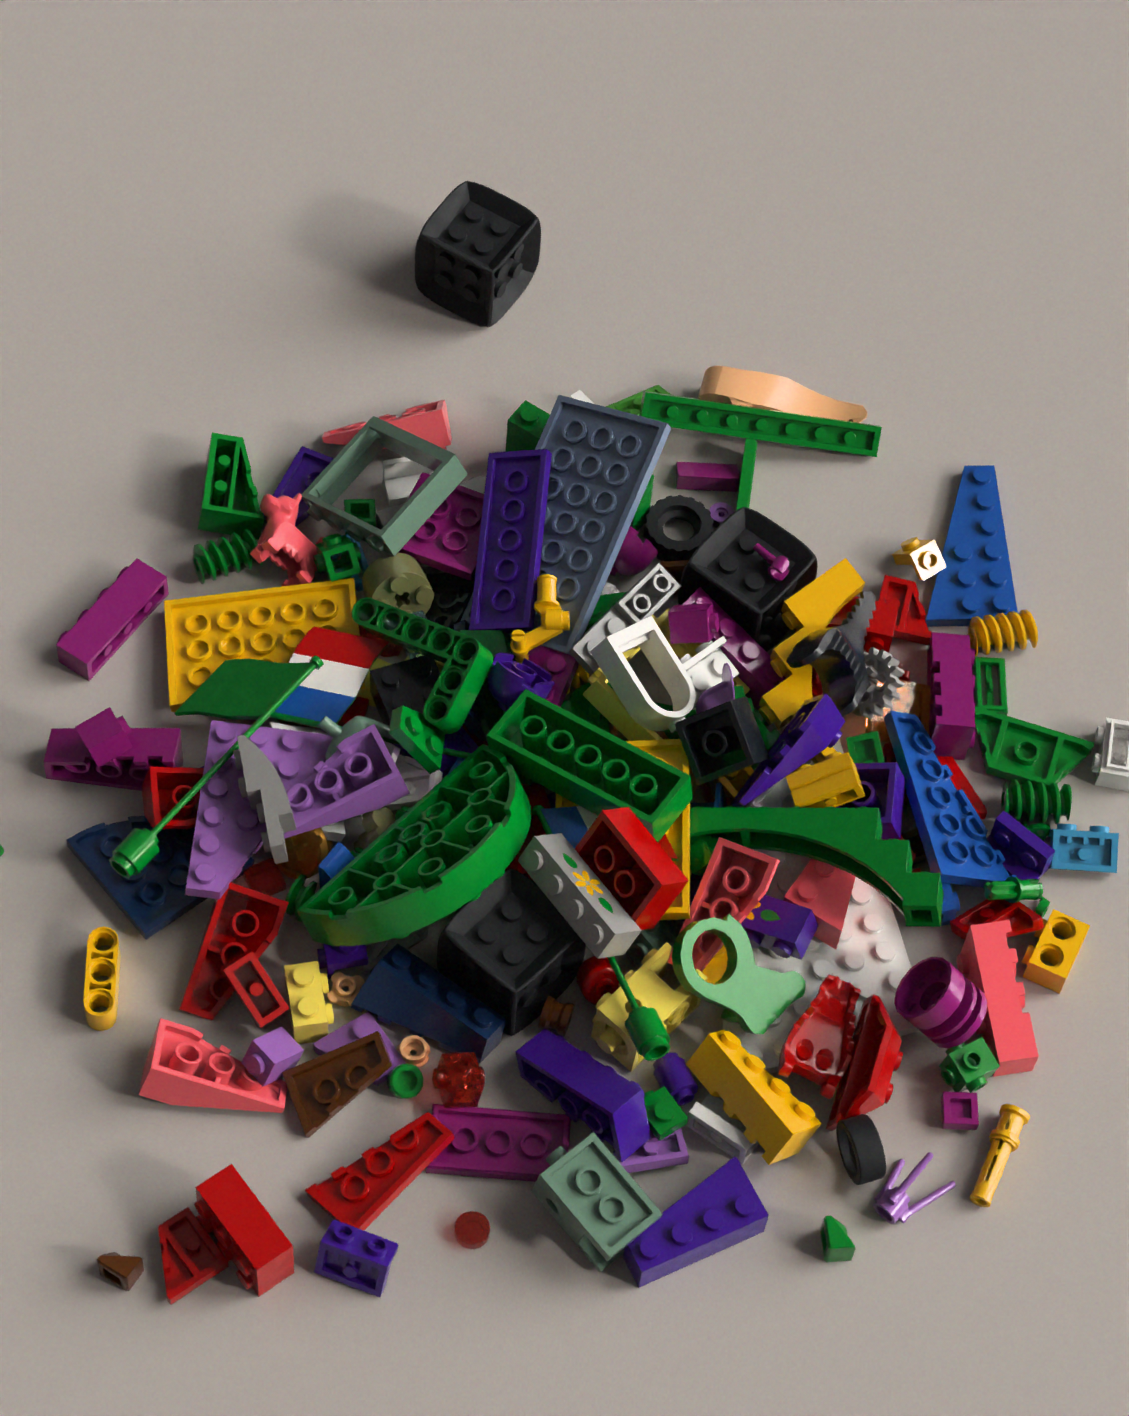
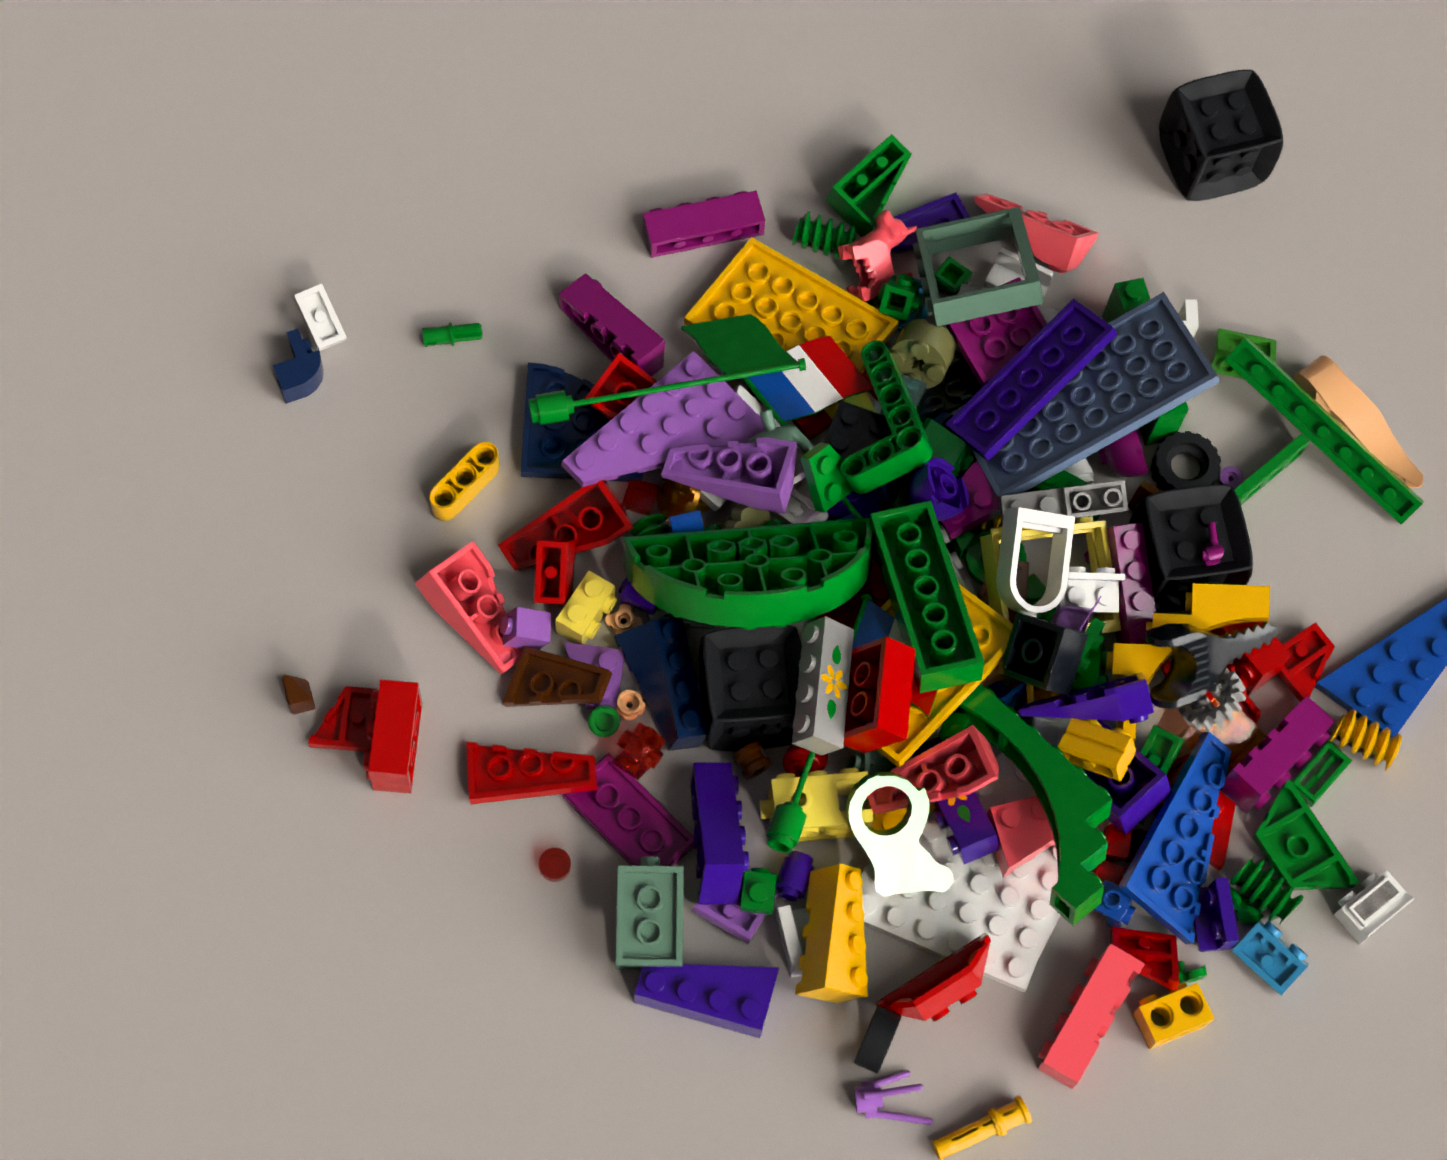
camera: 40 degrees right, 10 degrees up
(105, 736) = (607, 306): magenta brick -> none
(266, 795) = (676, 433): light grey slope -> none
(355, 1257) = (455, 817): dark purple bracket -> none
(553, 620) = (1005, 464): yellow pin -> none
(692, 623) = (1107, 546): magenta brick -> none
(707, 476) = (1248, 439): magenta slope -> none
(821, 1039) = (925, 934): red animal -> none
(835, 1241) = (802, 1089): green slope -> none
(922, 555) = (1358, 630): yellow bracket -> none
(940, 1002) = (1035, 982): magenta wheel -> none
(959, 1110) = (984, 1072): magenta plate -> none
(968, 1066) = (1029, 1041): green brick -> none
(1013, 890) = (1179, 943): green axle -> none

